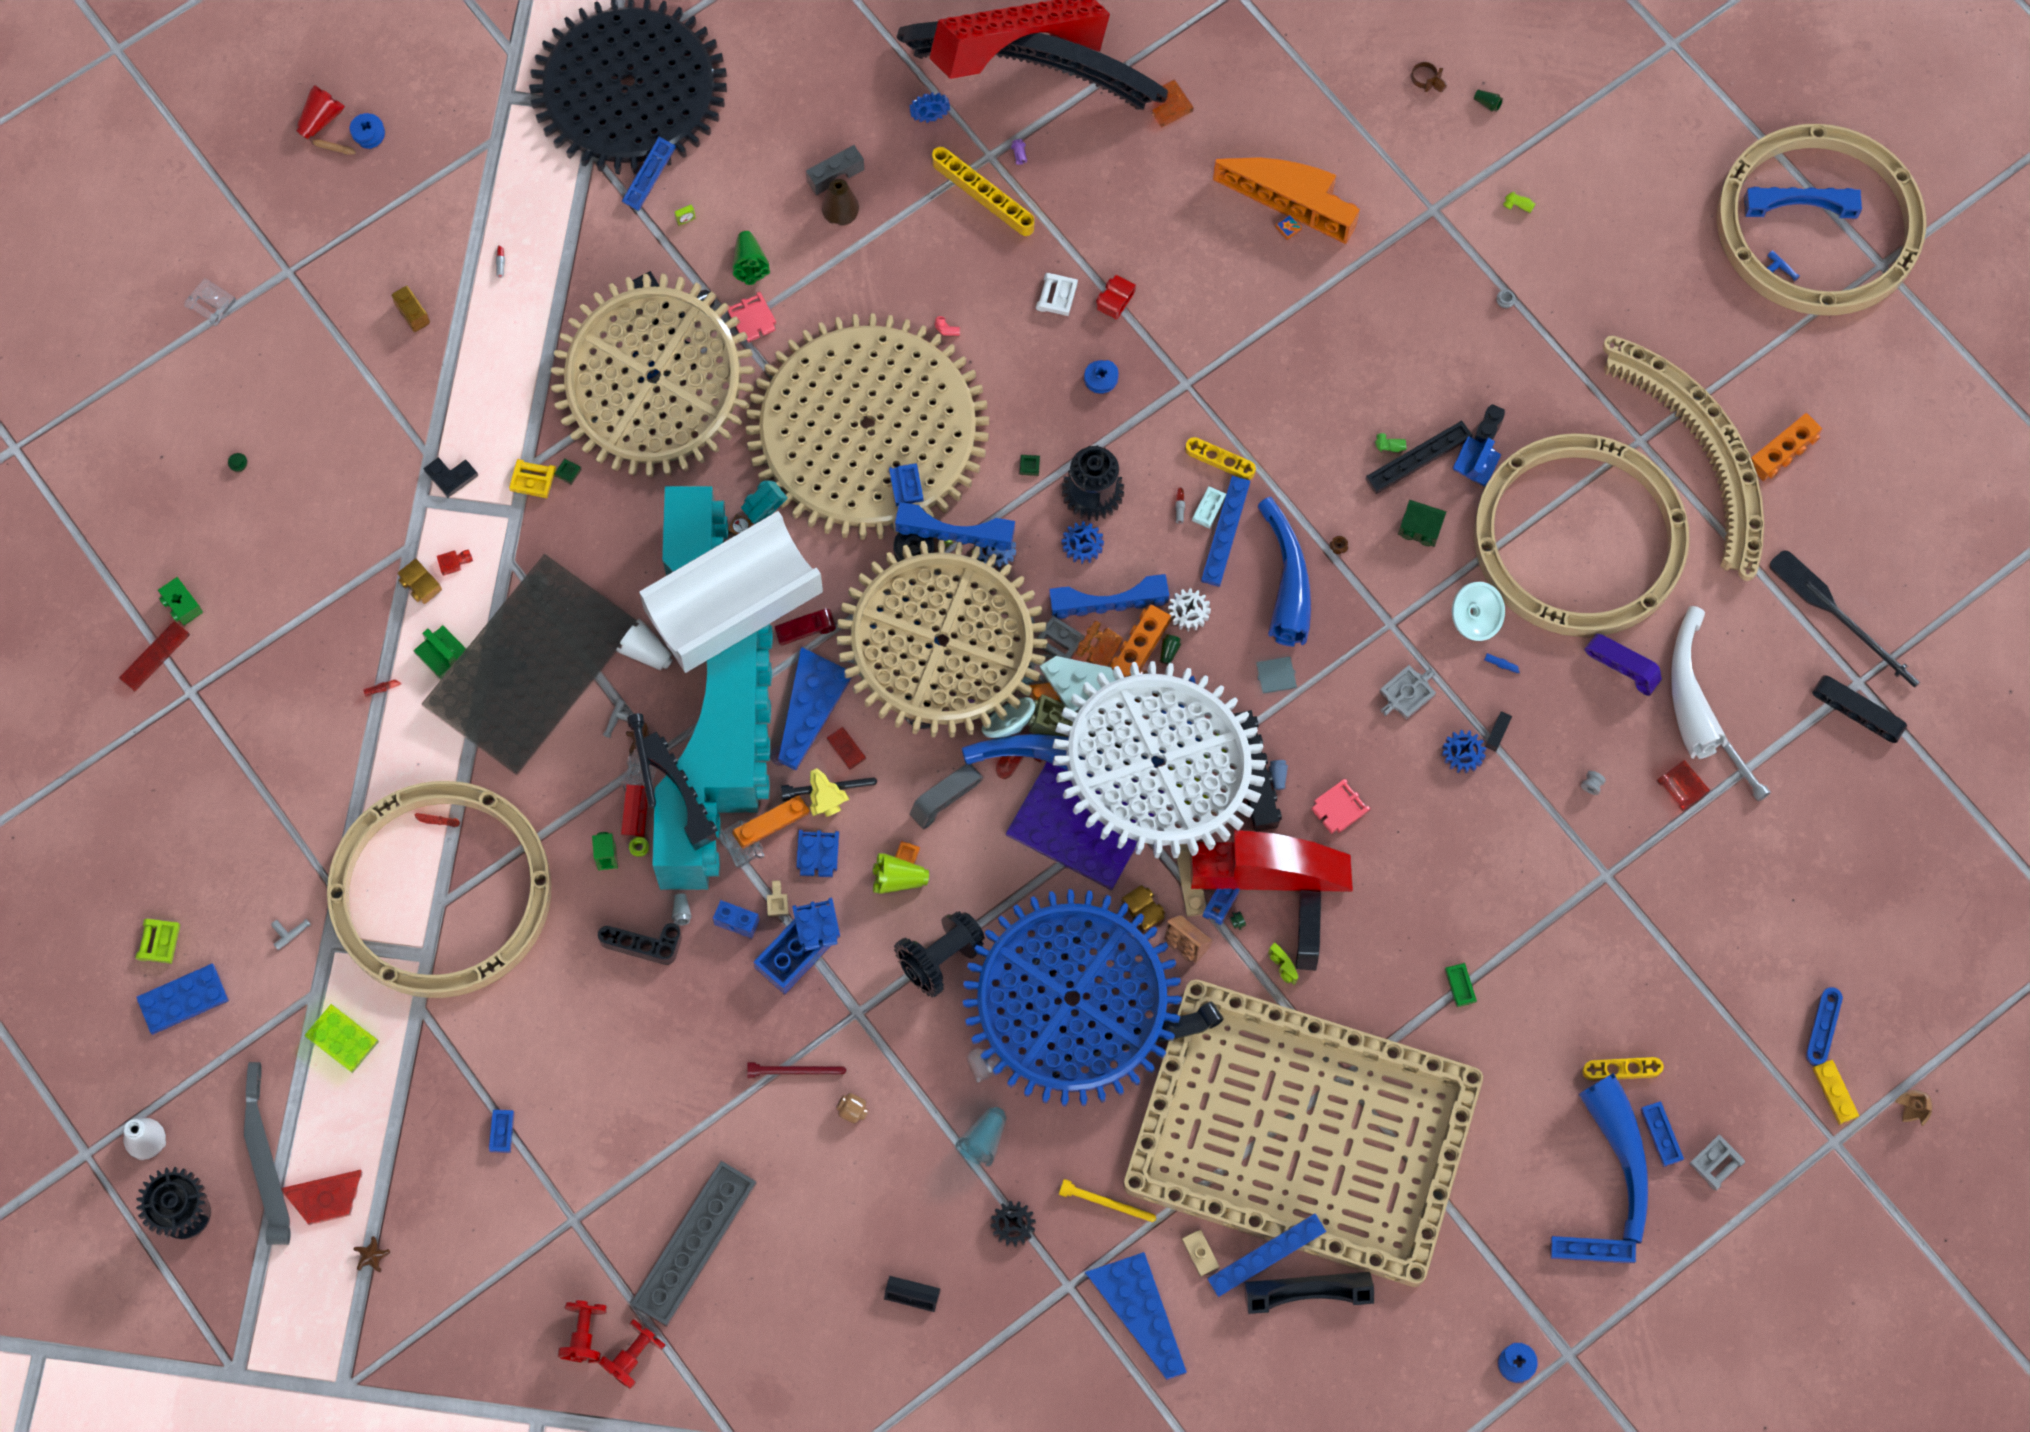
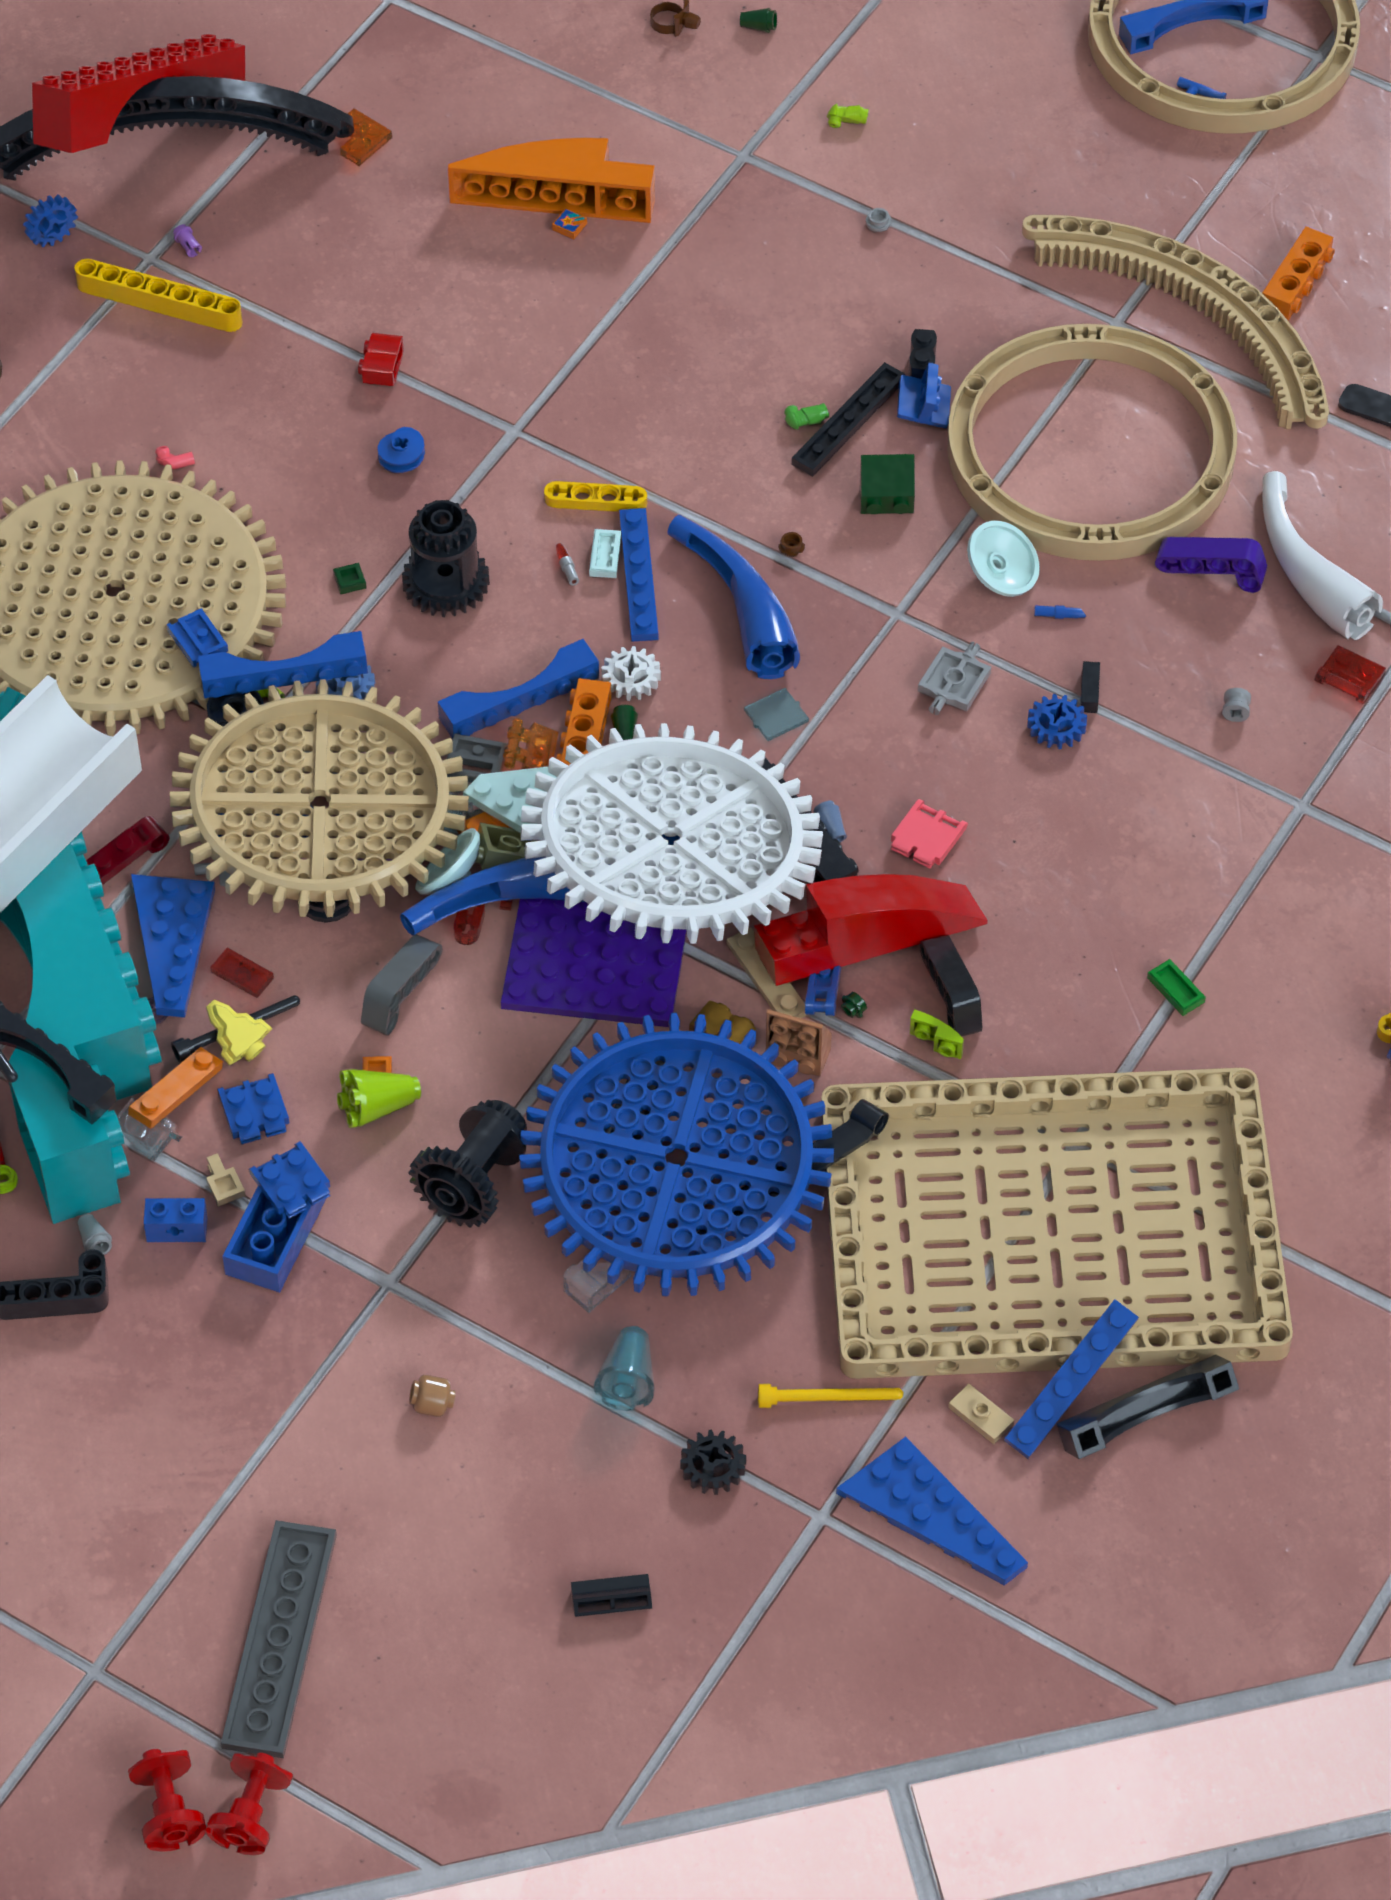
camera: 20 degrees left, 15 degrees down
(755, 1070) = (277, 1395): dark red piece -> none
(1062, 297) = (312, 377): white plate -> none
(1078, 535) = (458, 640): blue gear -> none

